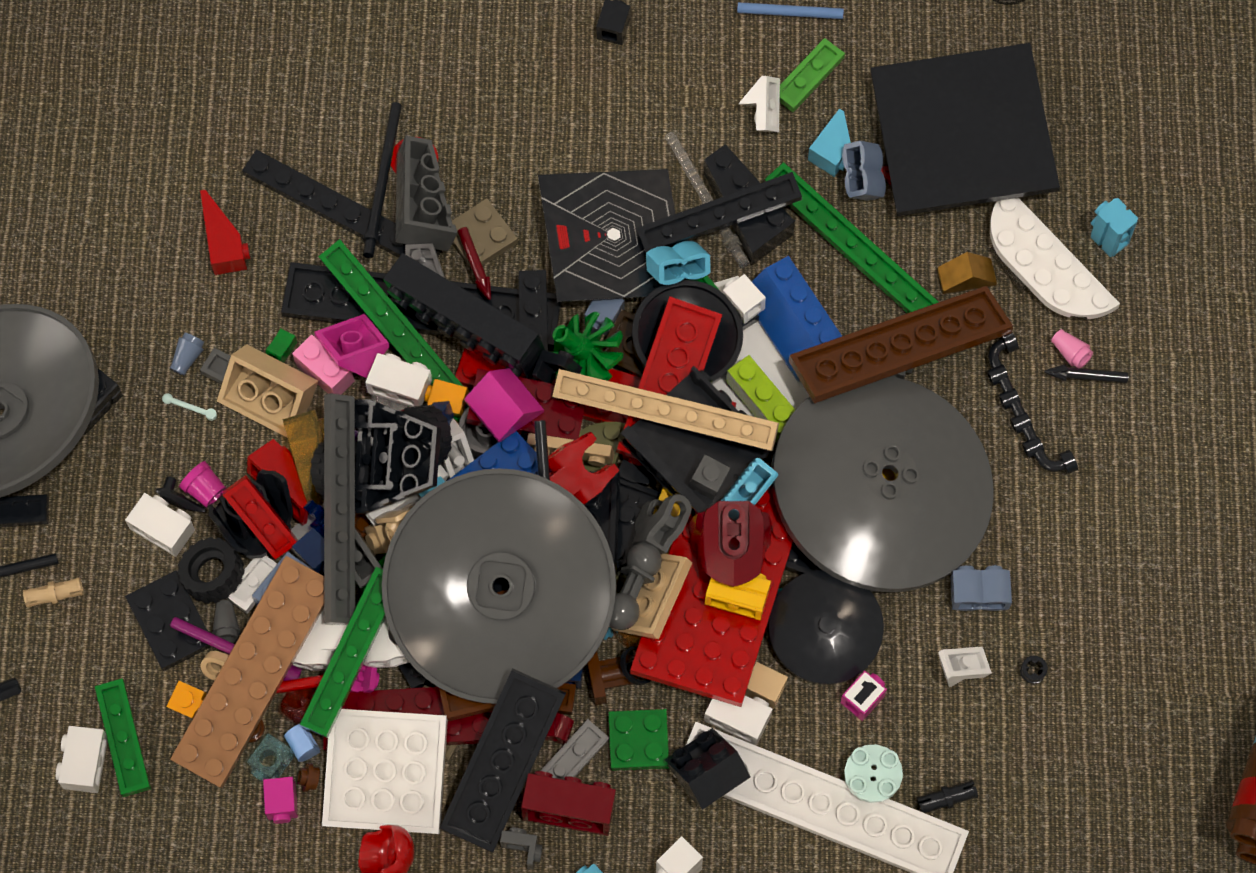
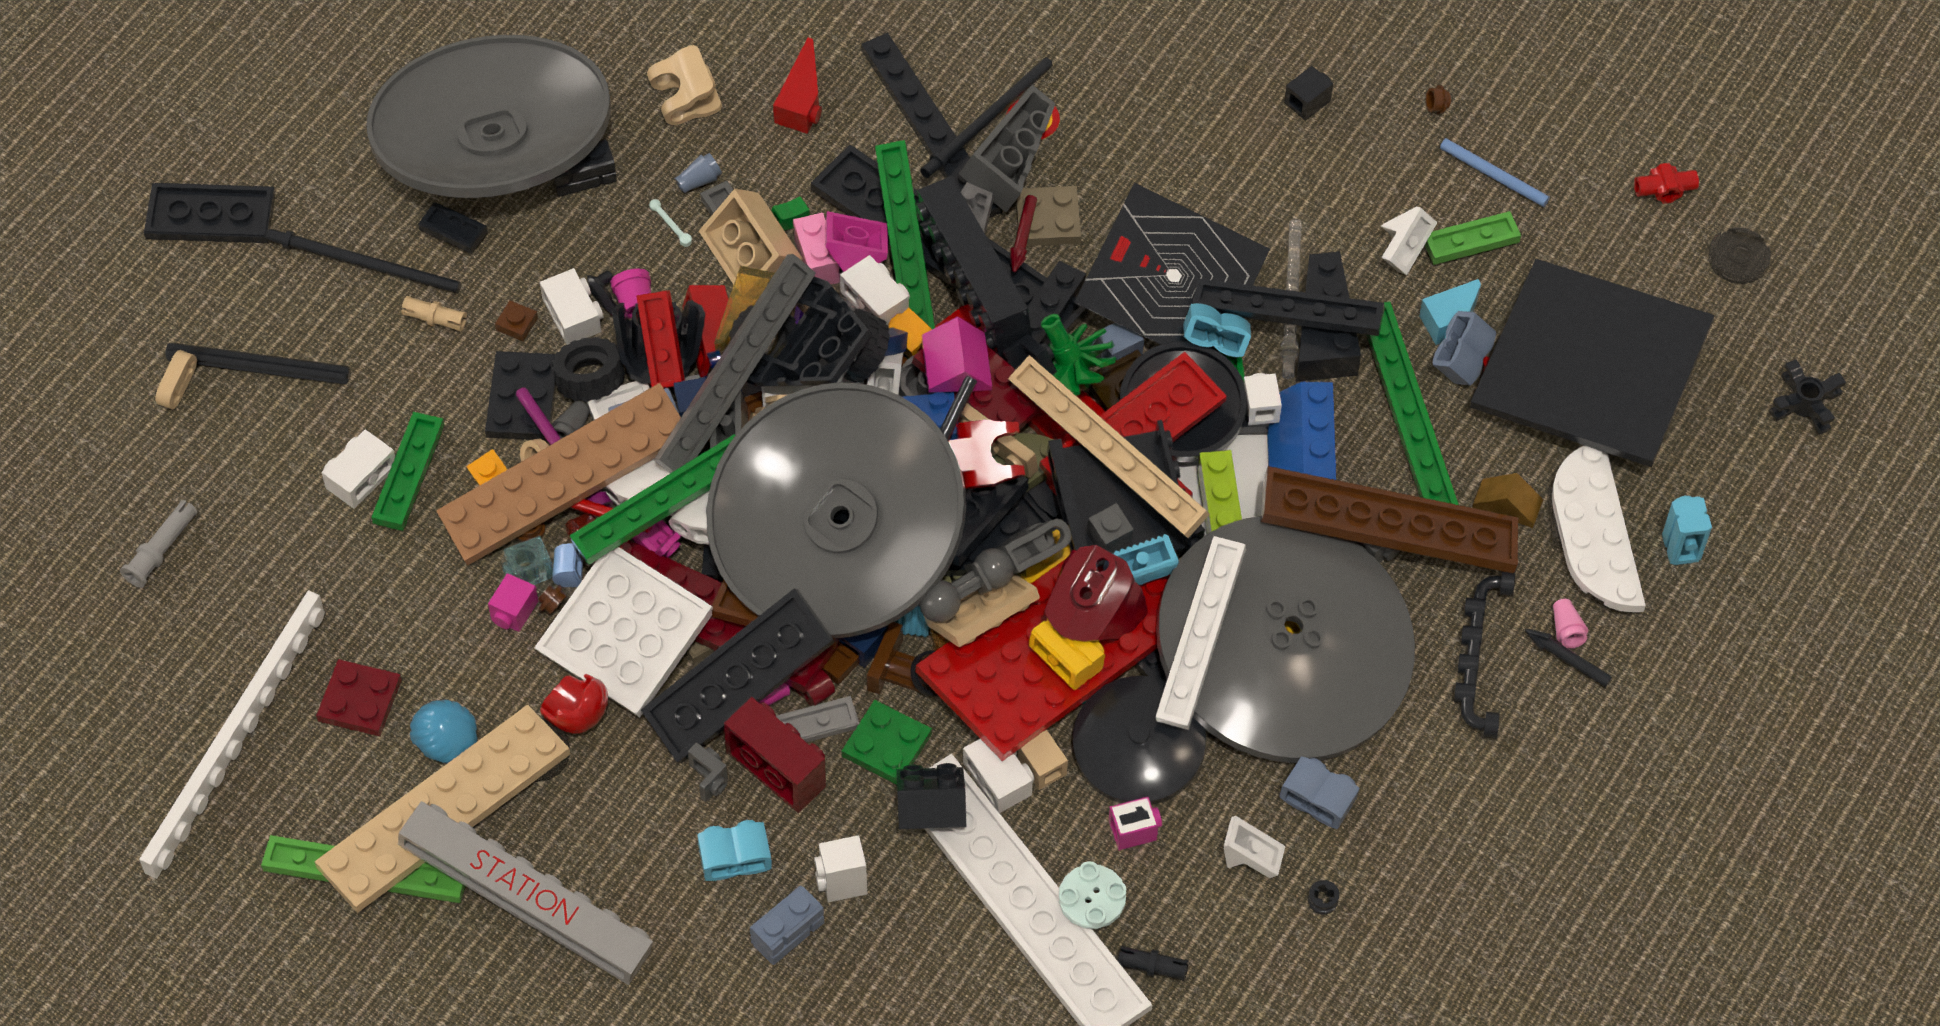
camera: 30 degrees right, 10 degrees down
(122, 560) = (516, 320): none -> reddish brown plate
(125, 272) = (696, 86): none -> tan piece
(830, 521) = (1200, 633): none -> white plate
(1133, 59) = (1811, 387): none -> black pin

